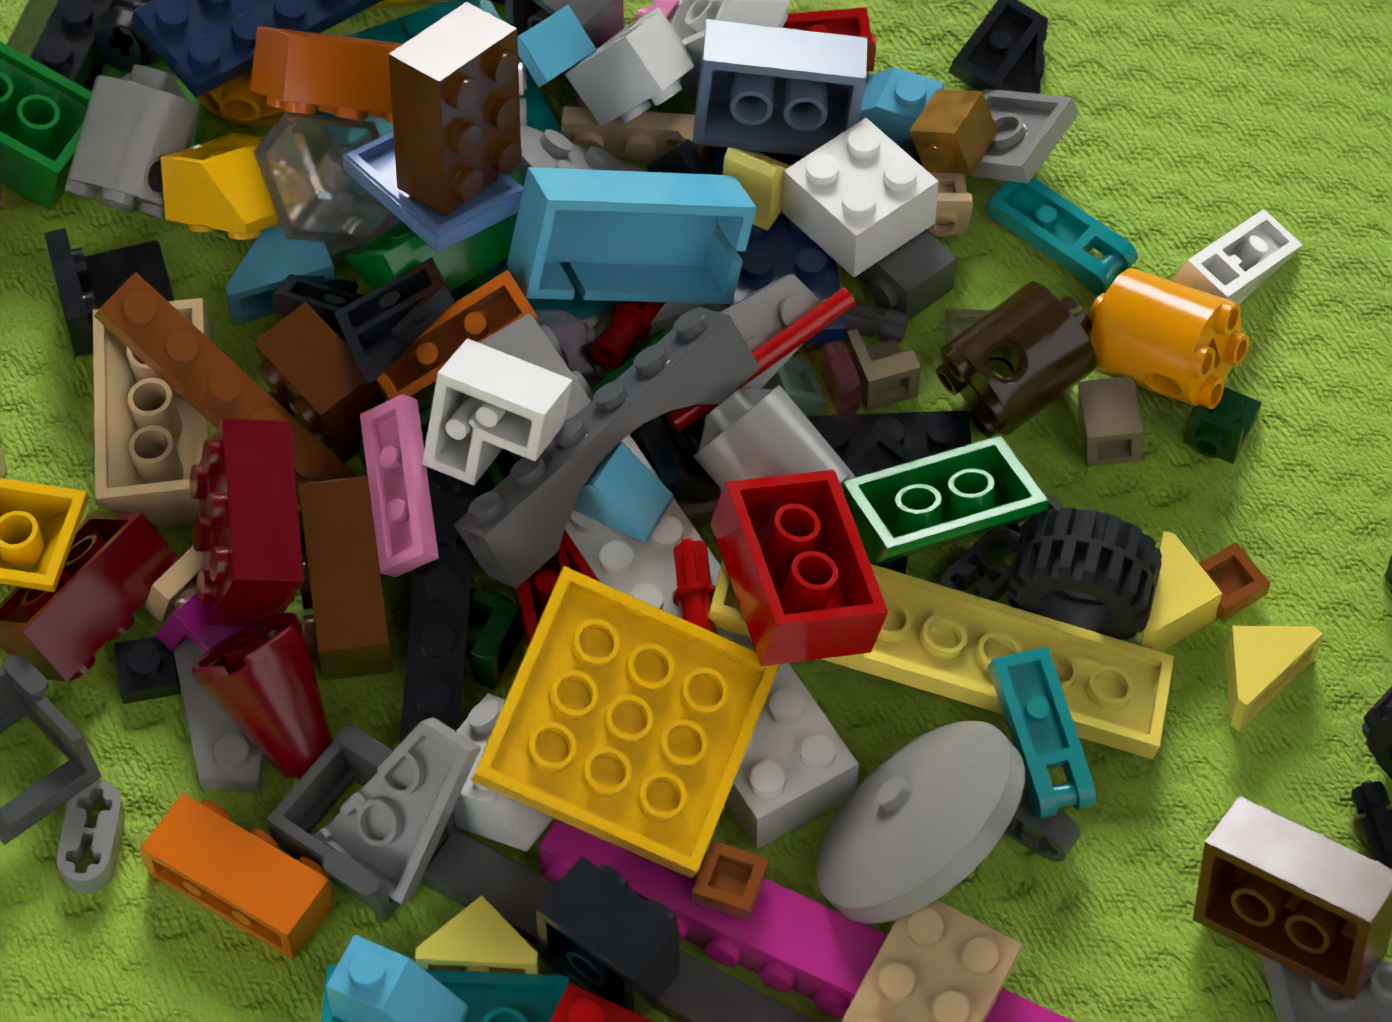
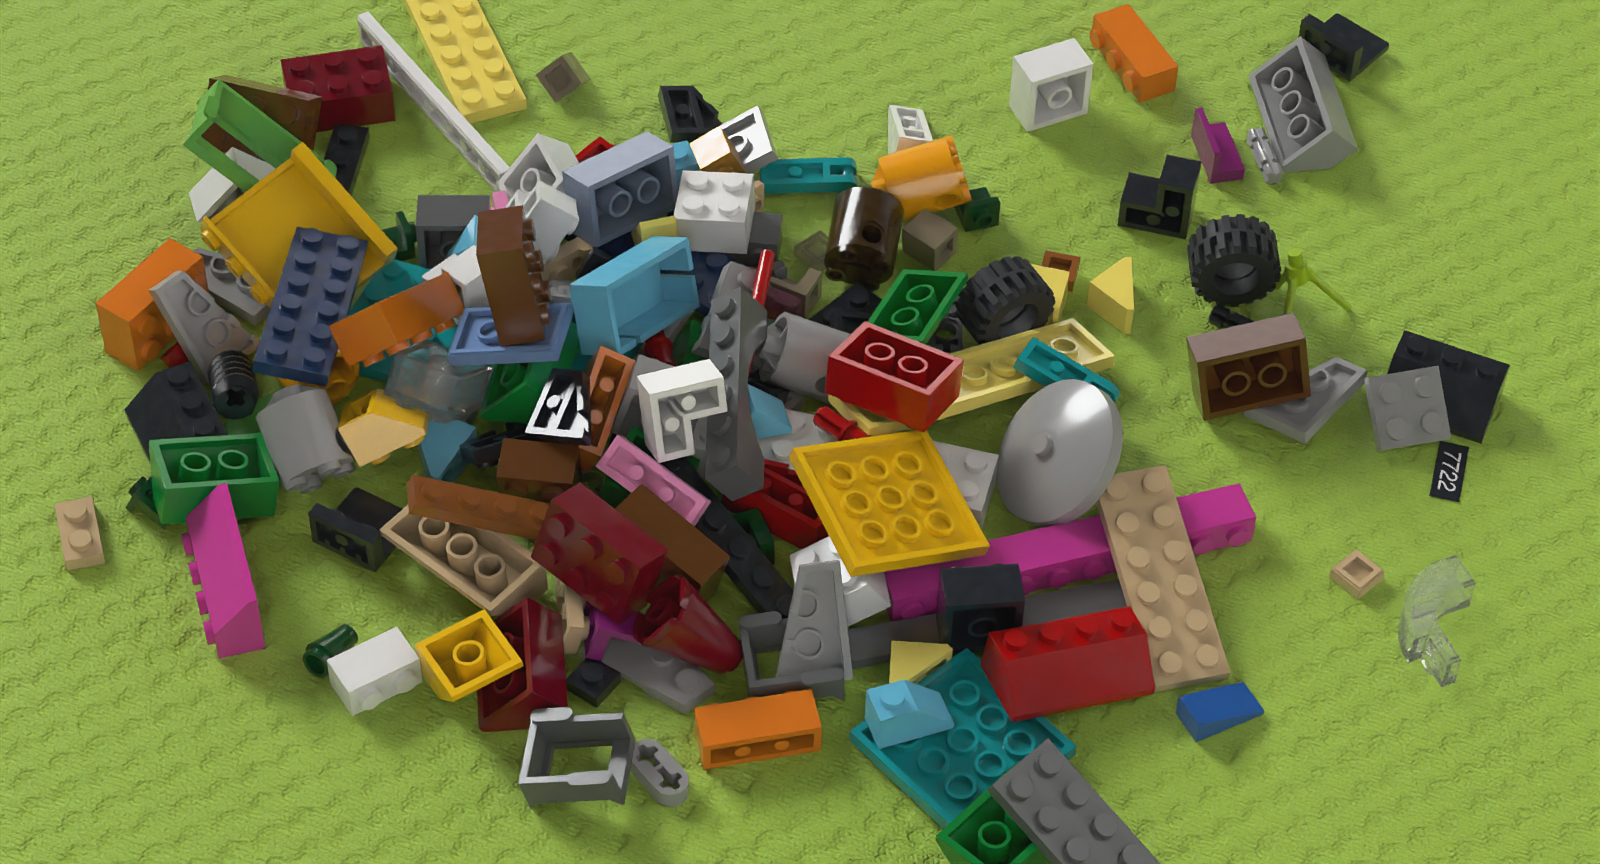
camera: 45 degrees left, 10 degrees down
(730, 880) = (1005, 542): dark orange plate -> none

